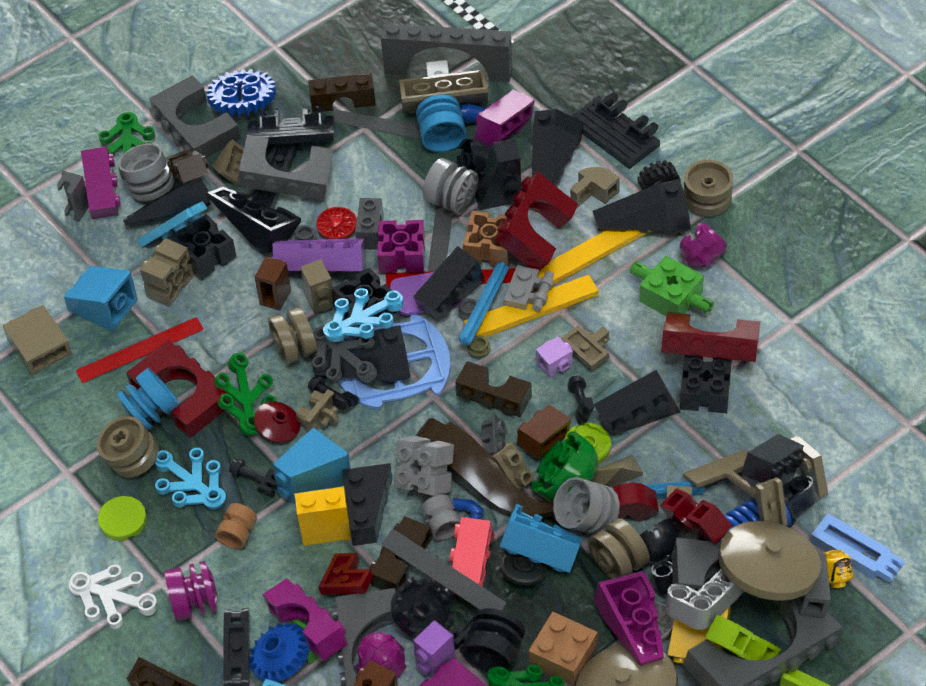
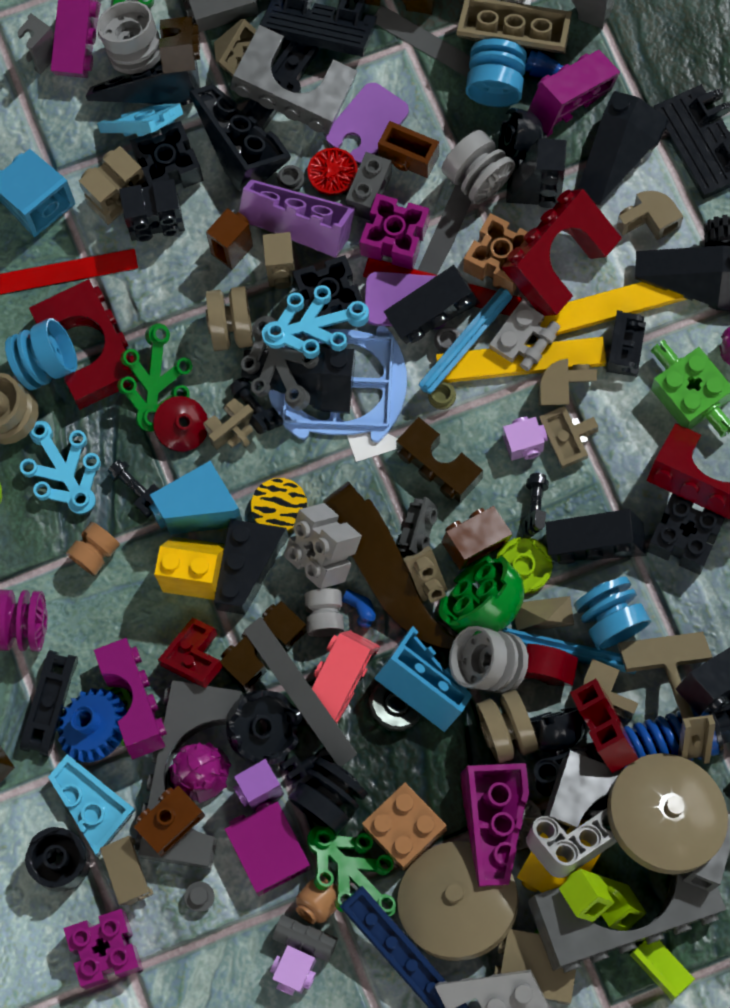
camera: 20 degrees right, 20 degrees up
(204, 280) = (152, 210): none -> black brick
(353, 181) = (367, 118): none -> medium lavender piece
(376, 451) = (278, 503): none -> yellow tile
(394, 189) = (408, 149): none -> reddish brown brick
(430, 401) = (364, 447): none -> white sticker
(566, 308) = (555, 381): none -> dark tan brick
(608, 274) = (626, 344): none -> black hinge
(670, 449) = (610, 609): none -> dark azure wheel

